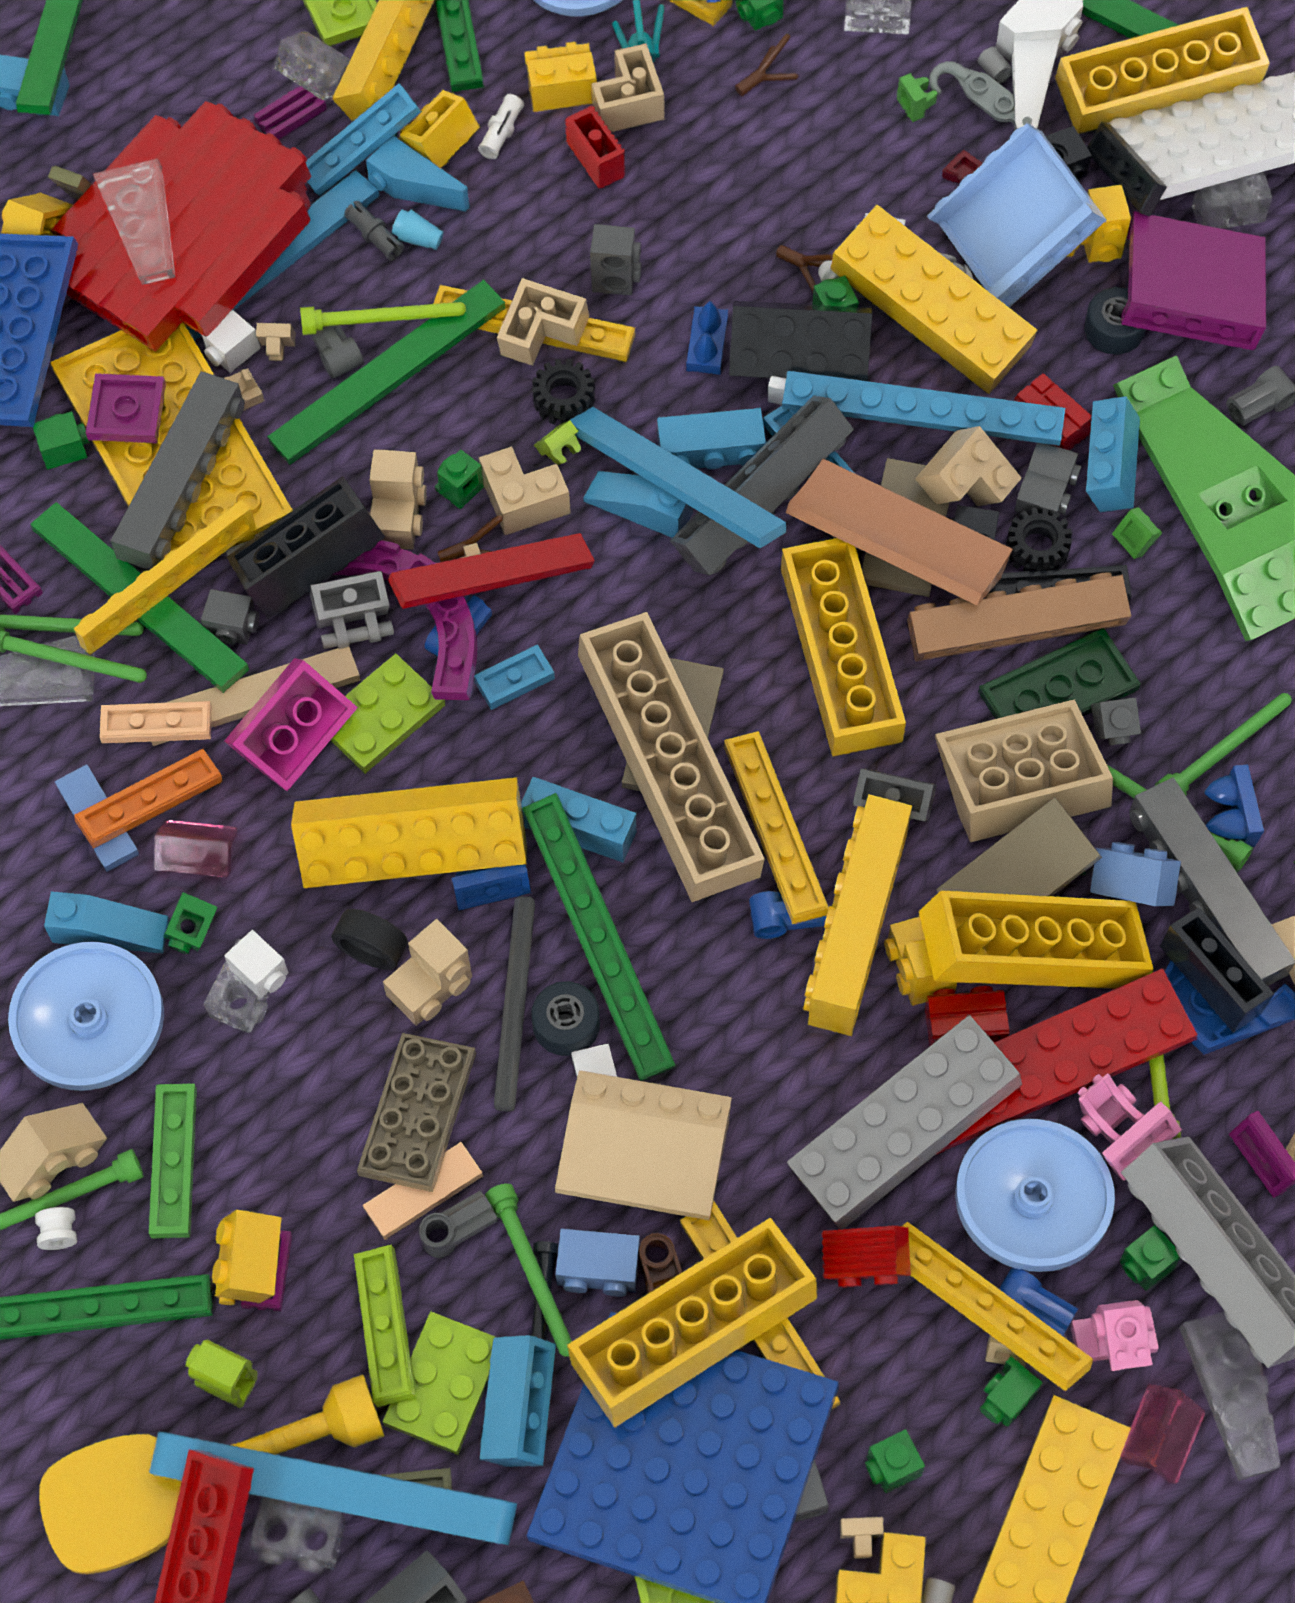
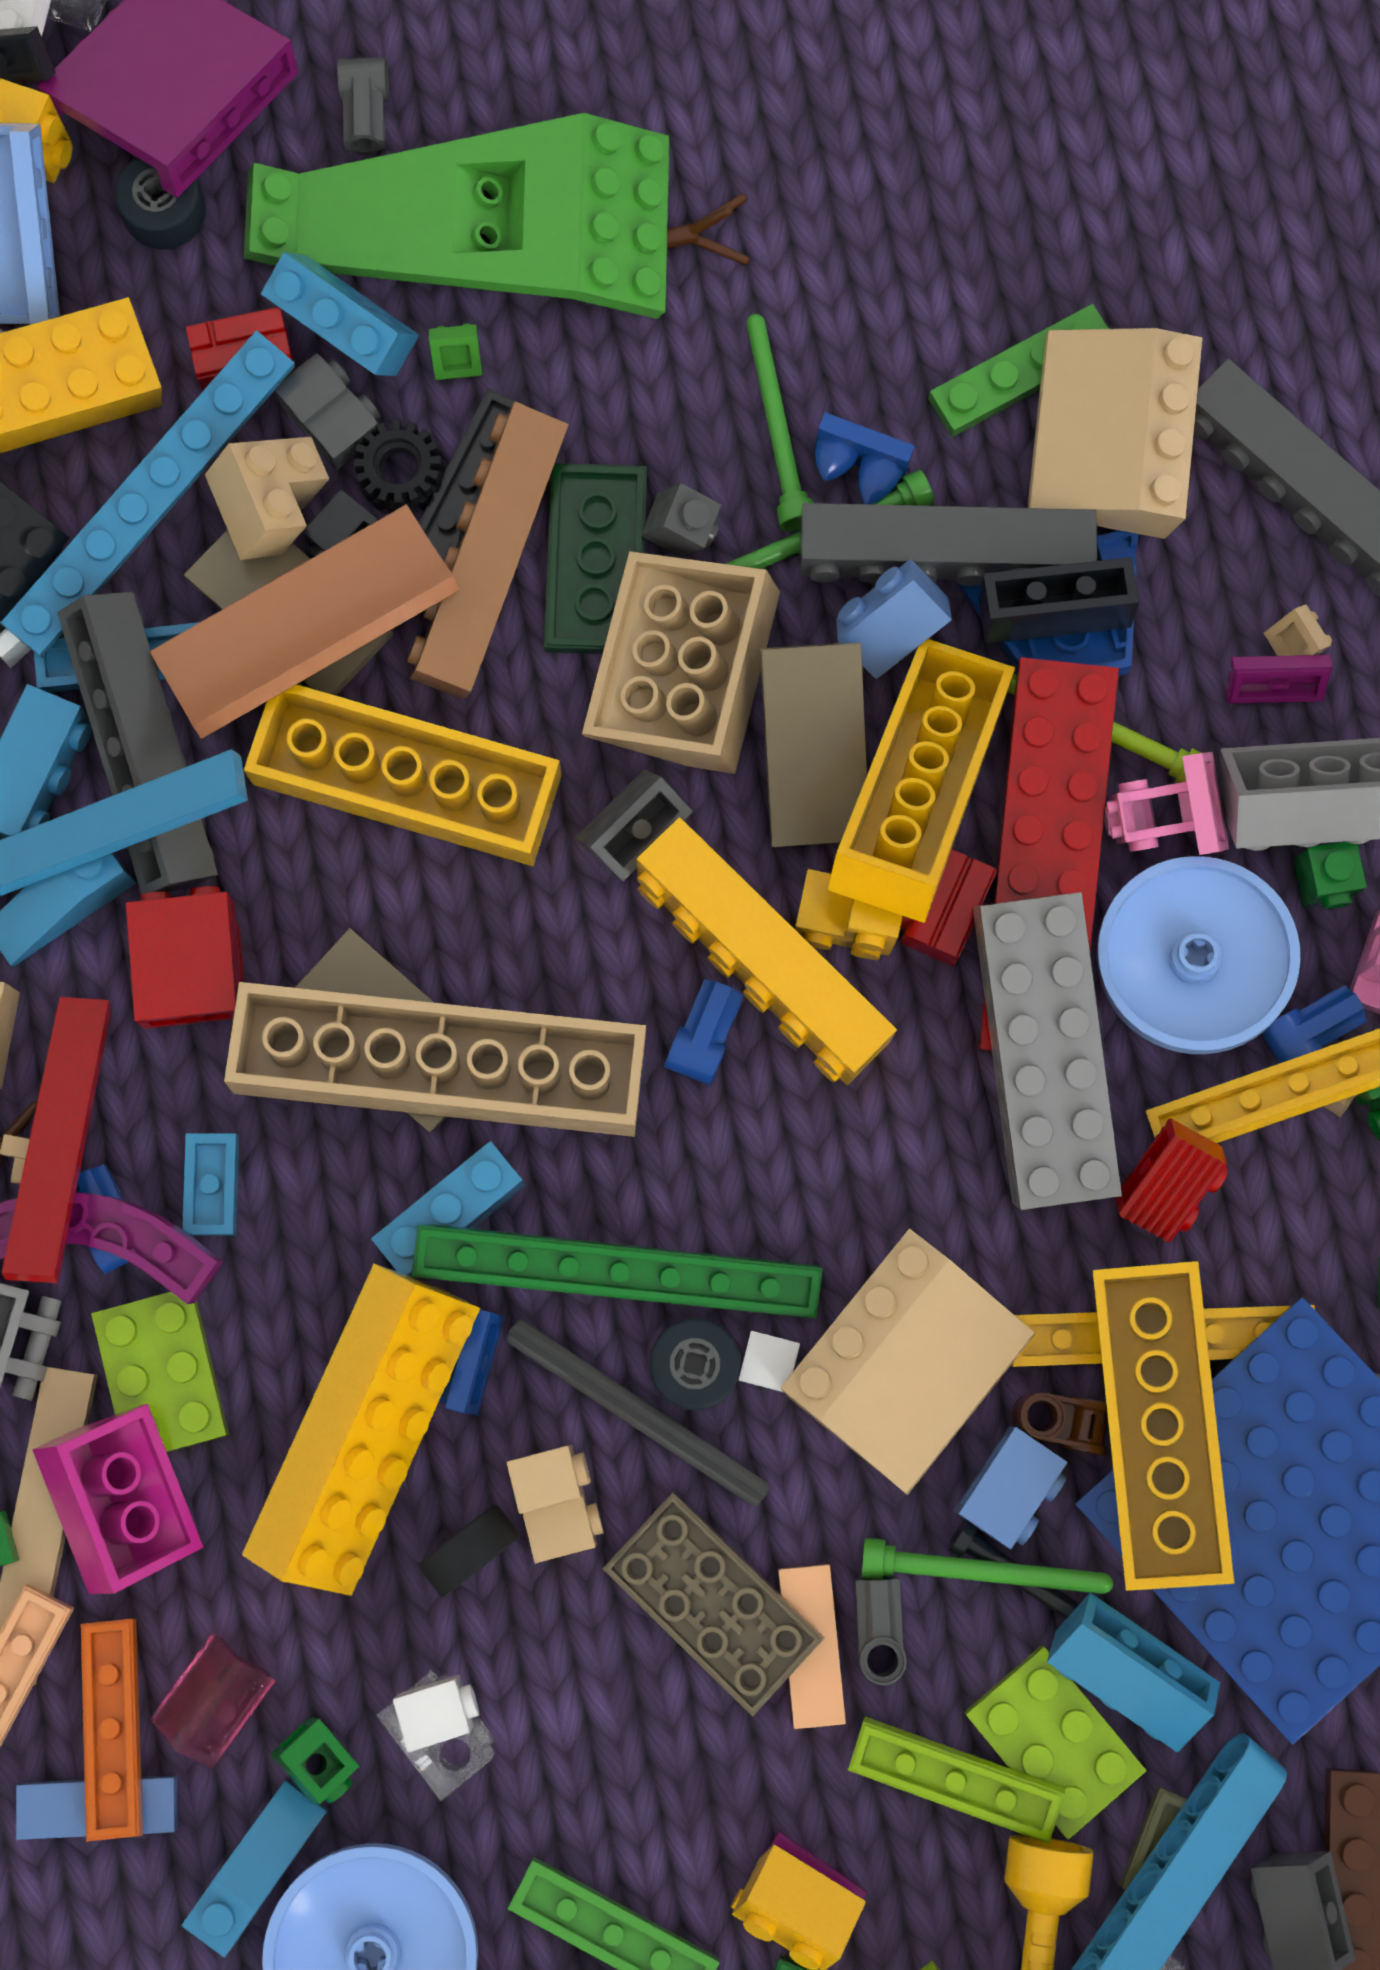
camera: 65 degrees left, 15 degrees up
(646, 579) = (184, 957): none -> red brick
(776, 828) = (593, 984): yellow tile -> none

